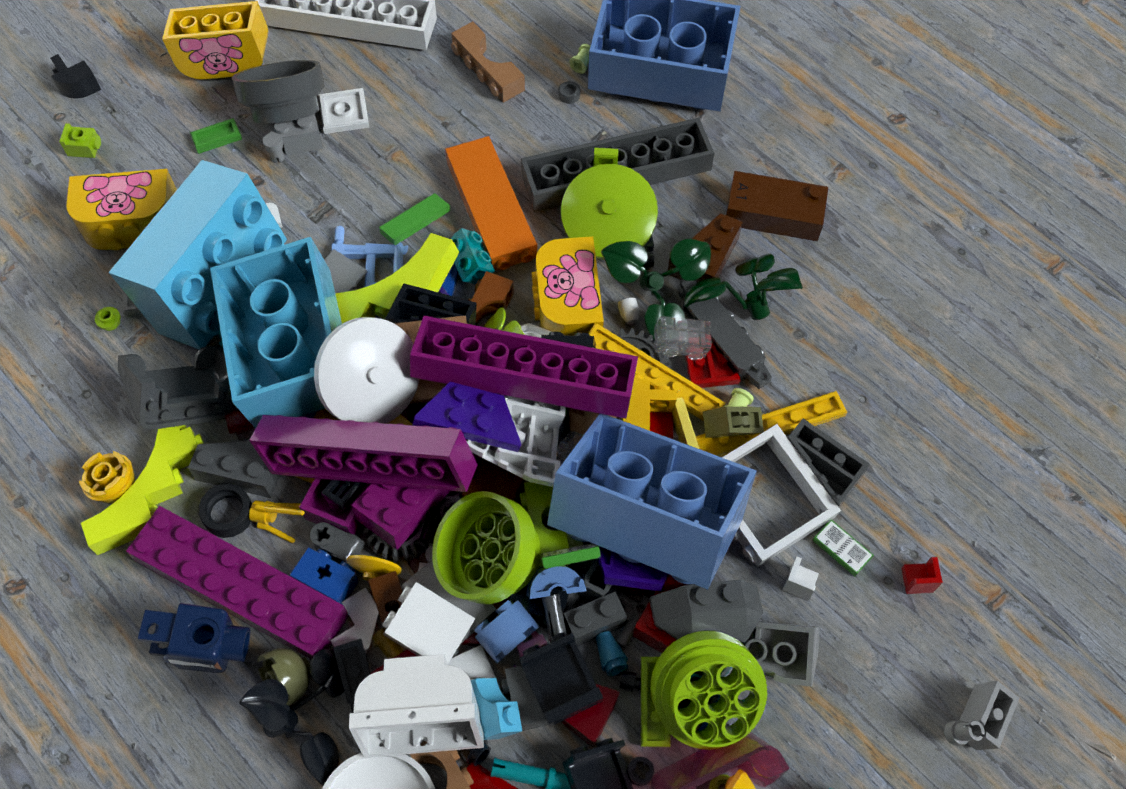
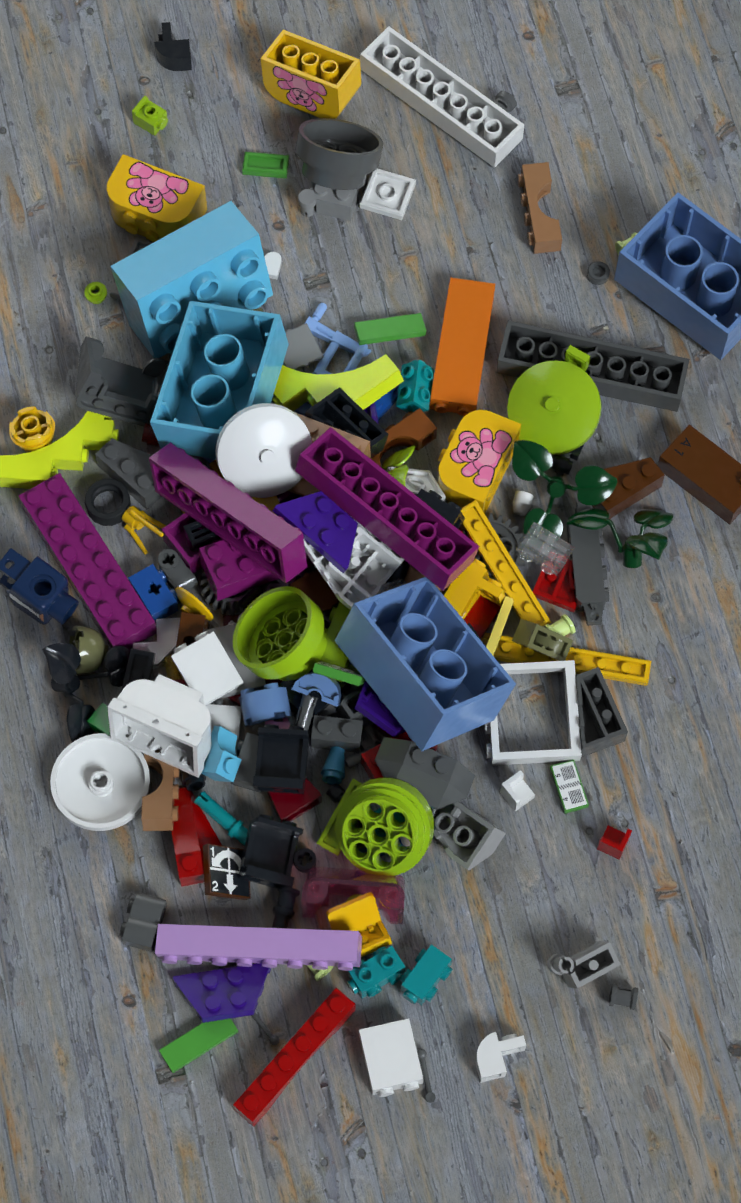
camera: 30 degrees right, 5 degrees up
(342, 742) = (100, 720): none -> green panel
(1036, 729) = (623, 996): none -> dark grey bush

